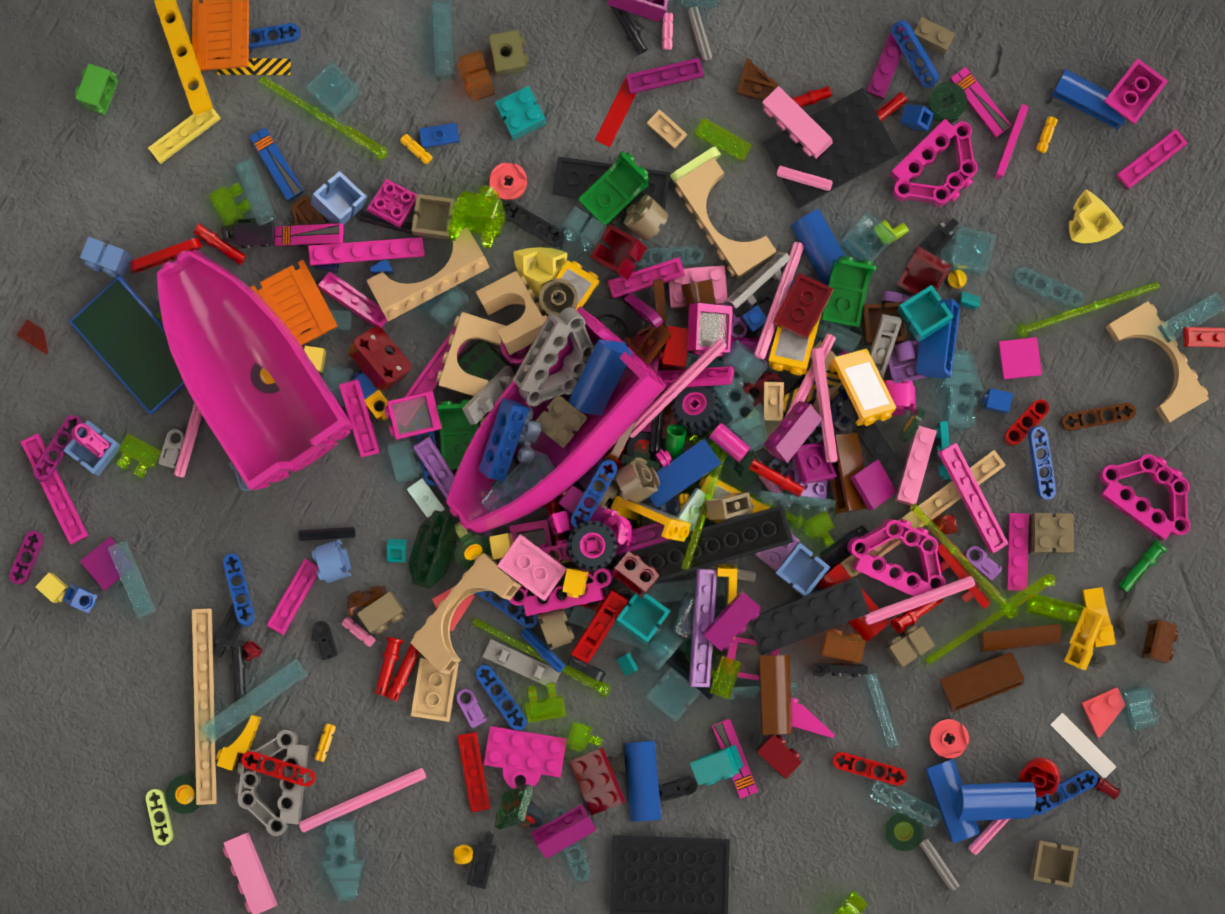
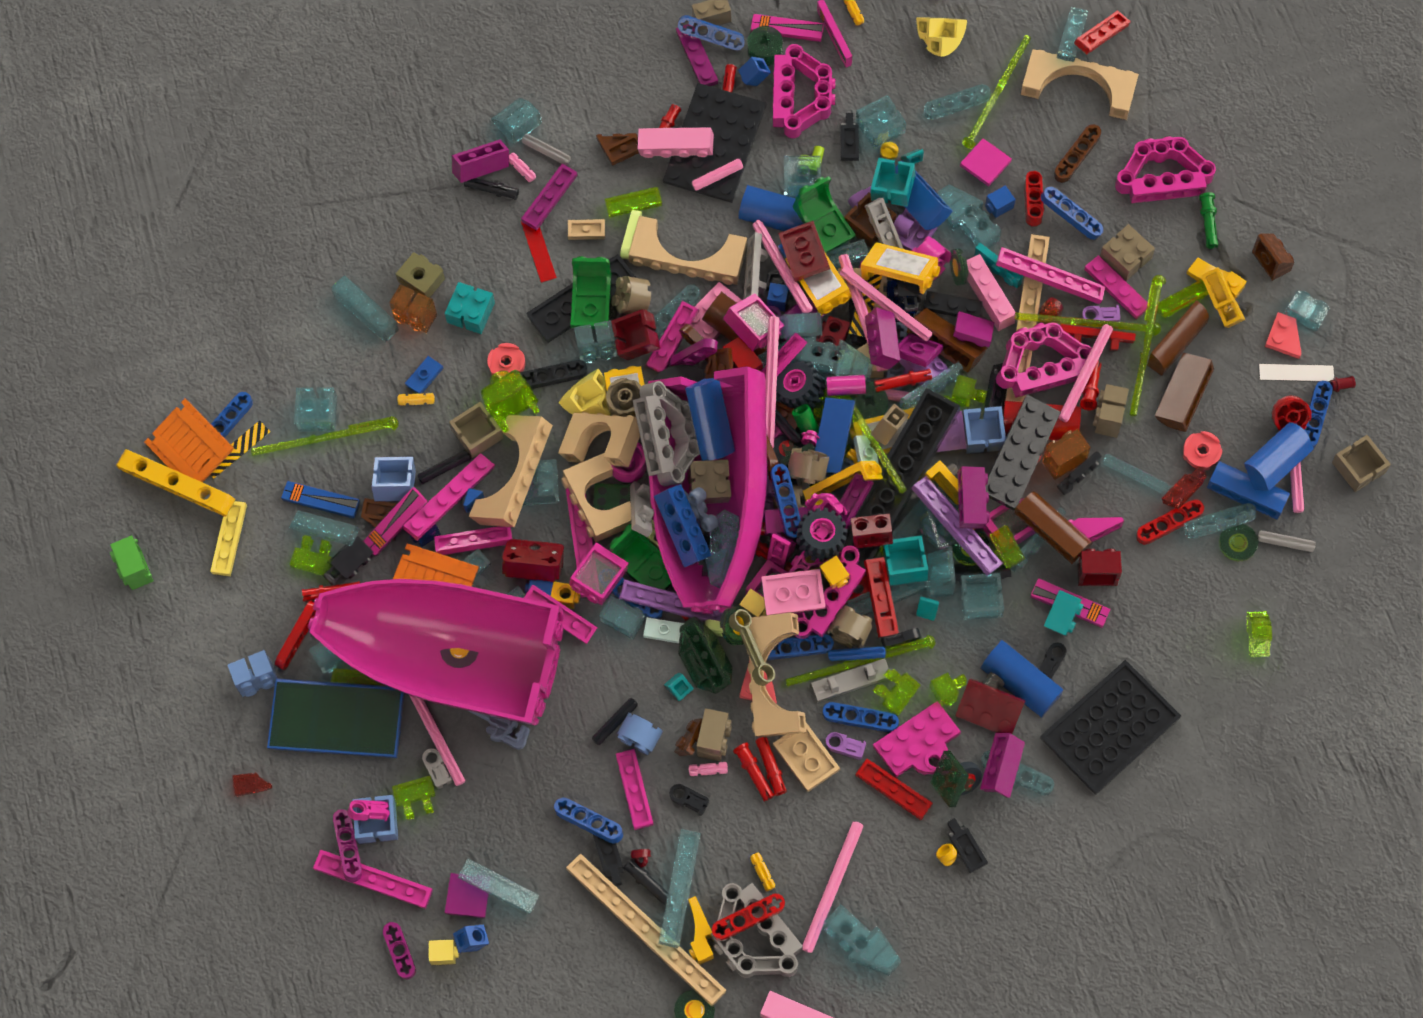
camera: 40 degrees left, 15 degrees down
(392, 203) = (435, 449): dark pink tile -> none
(464, 579) = (752, 647): none -> olive piece
(773, 401) = (847, 332): tan plate -> none
(904, 755) = (1184, 488): none -> clear red hinge
(923, 271) = (862, 162): dark red piece -> none

